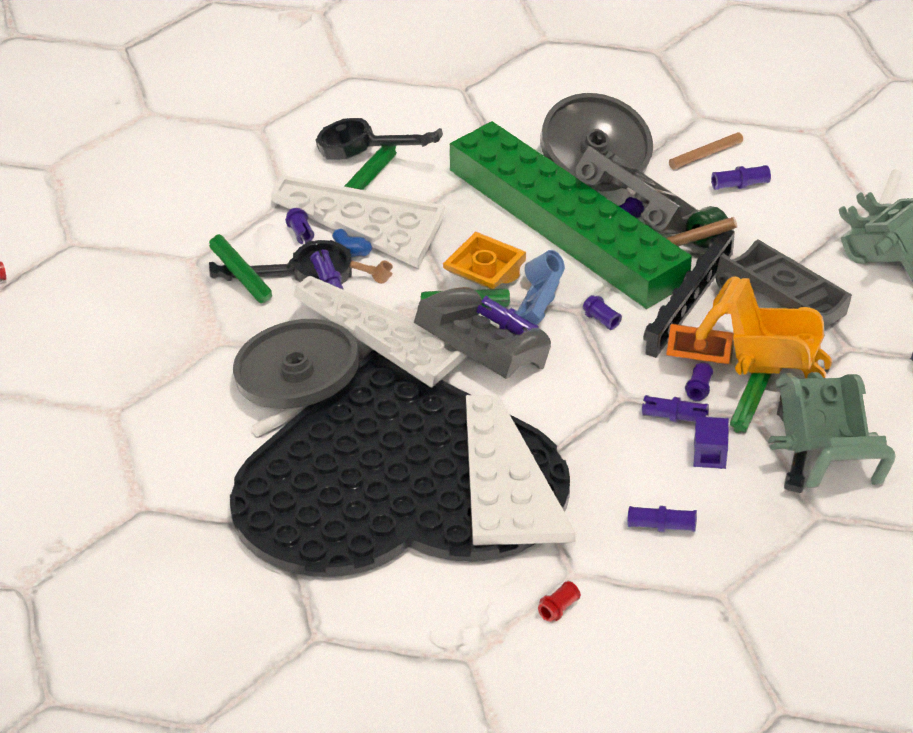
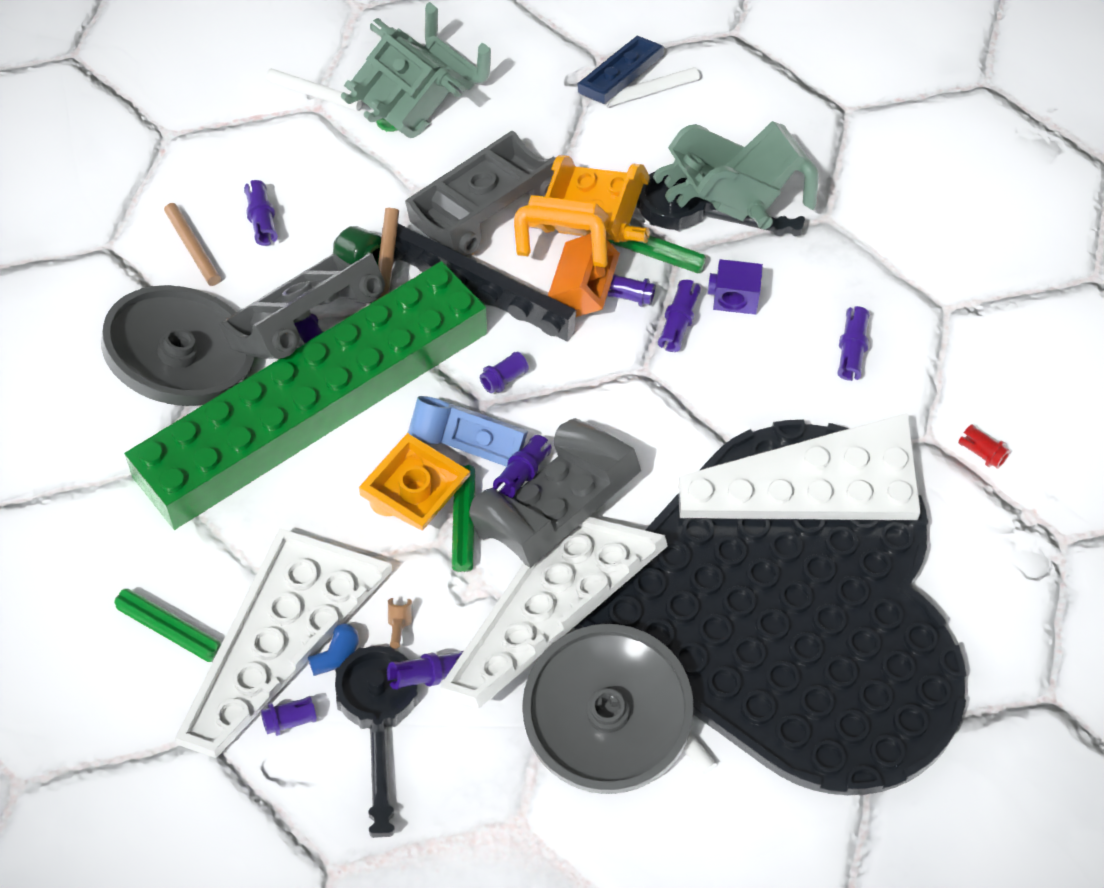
camera: 90 degrees left, 15 degrees up
(240, 268) = (391, 789): green axle -> none
(354, 135) = (98, 648): black piece -> none

